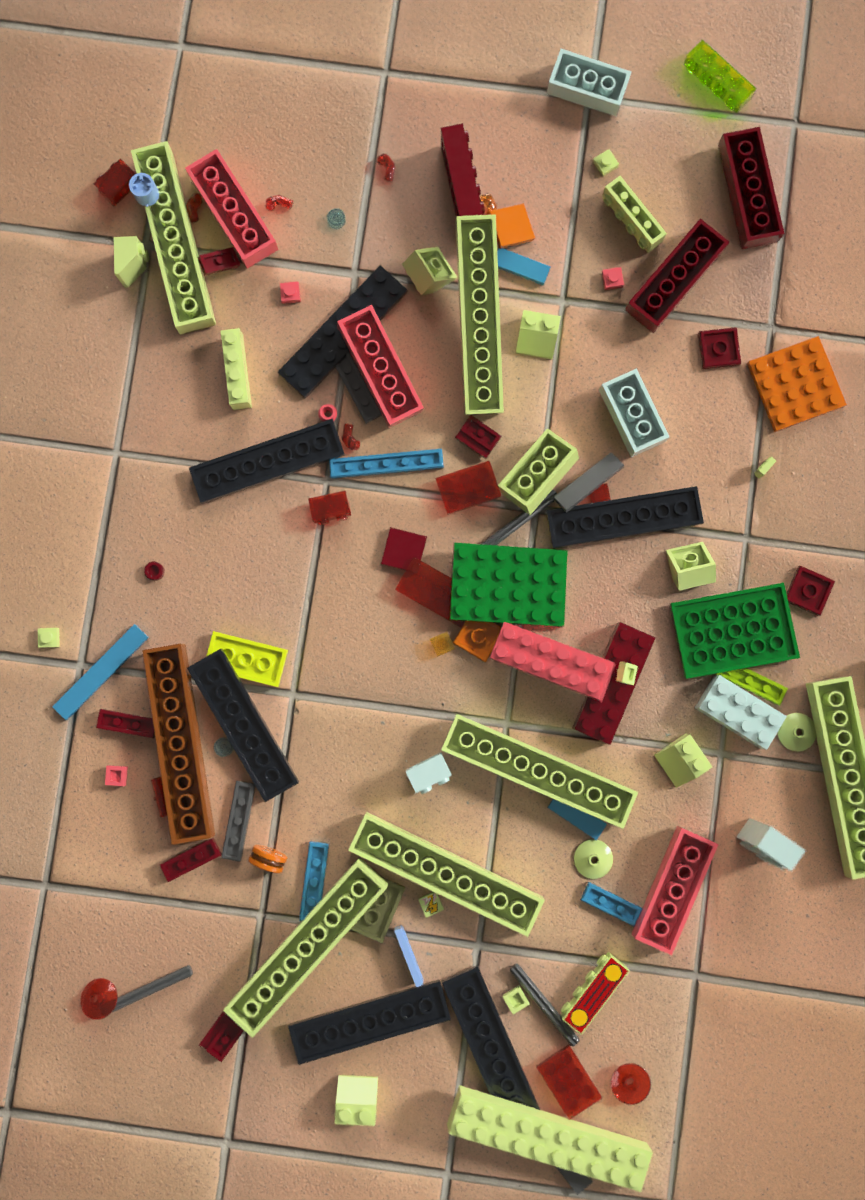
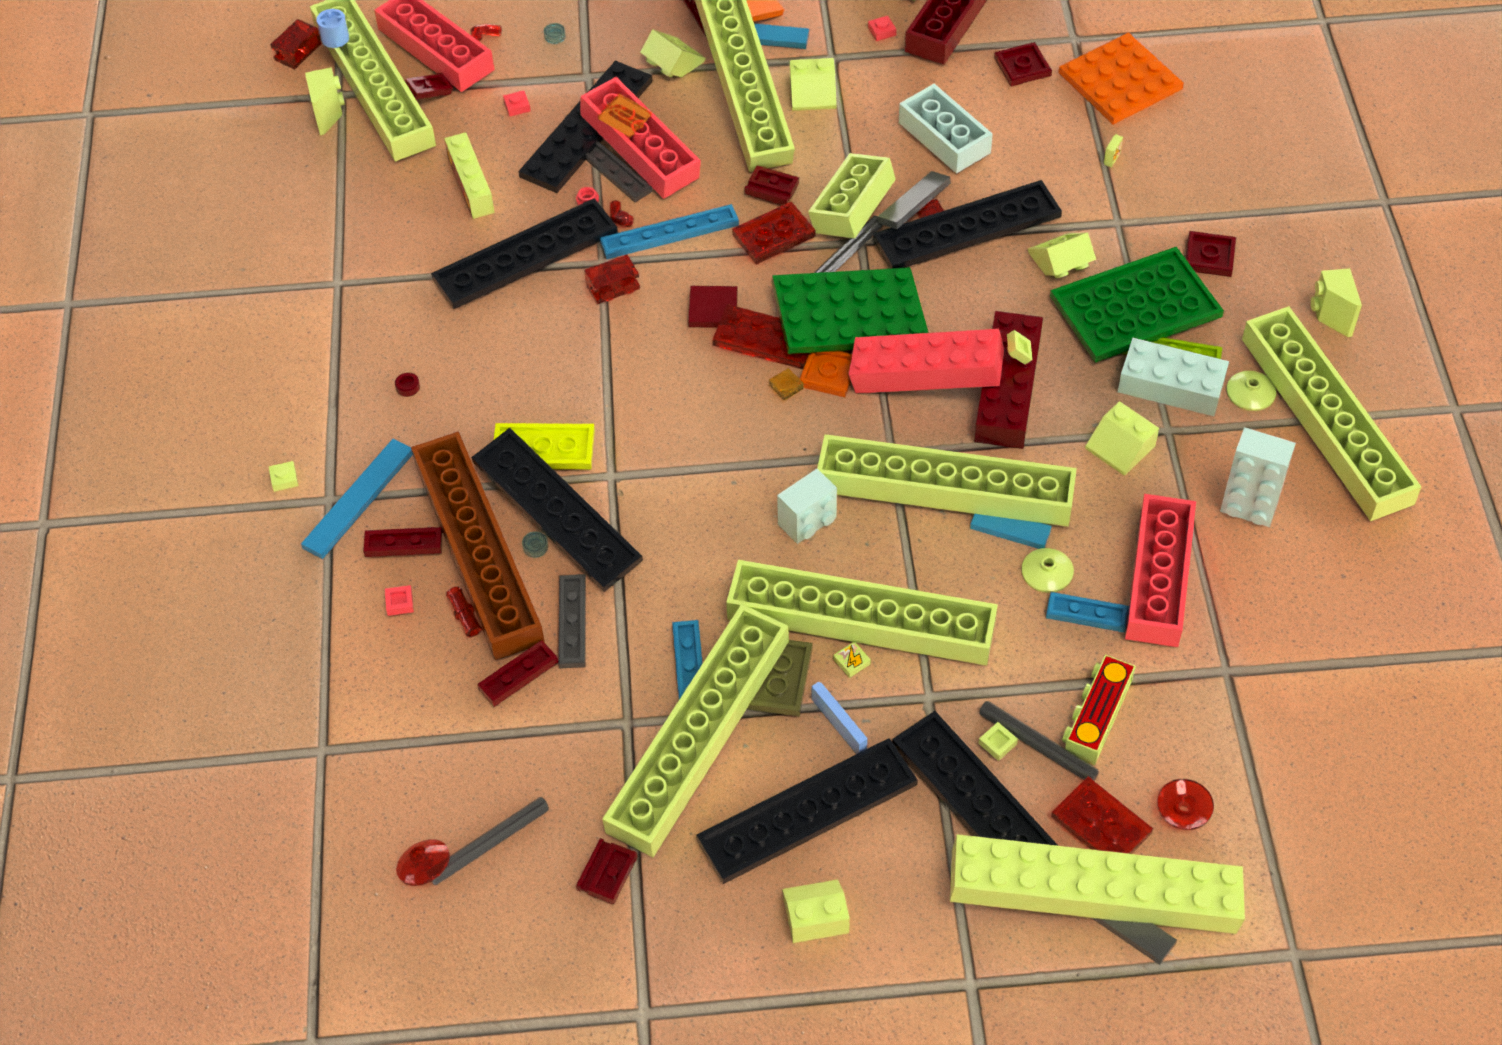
camera: 15 degrees left, 30 degrees down
(192, 206) = (390, 46): clear red arm -> none
(267, 859) = (622, 643): orange head -> none
(370, 350) = (625, 115): none -> clear orange piece

